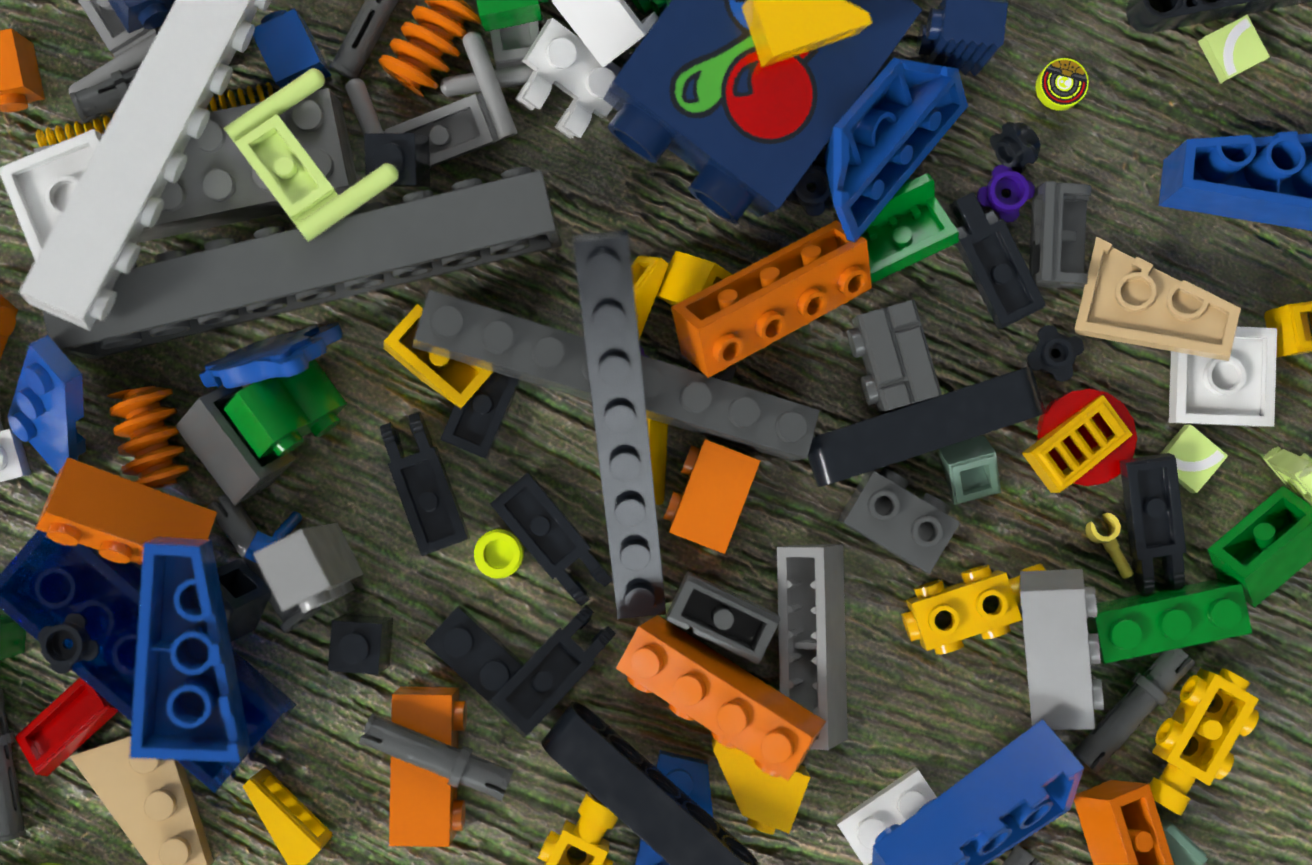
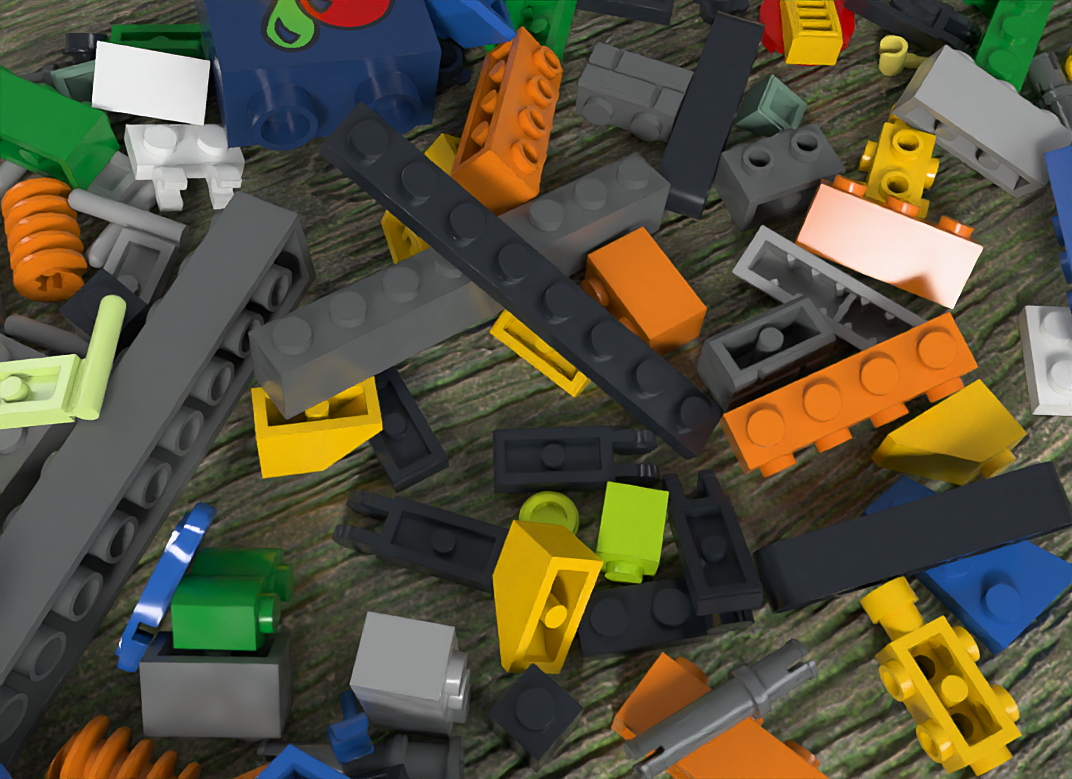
camera: 50 degrees left, 25 degrees down
(438, 590) = (541, 594): none -> yellow slope
(524, 615) = (631, 532): none -> lime brick
(887, 643) = (889, 240): none -> brick

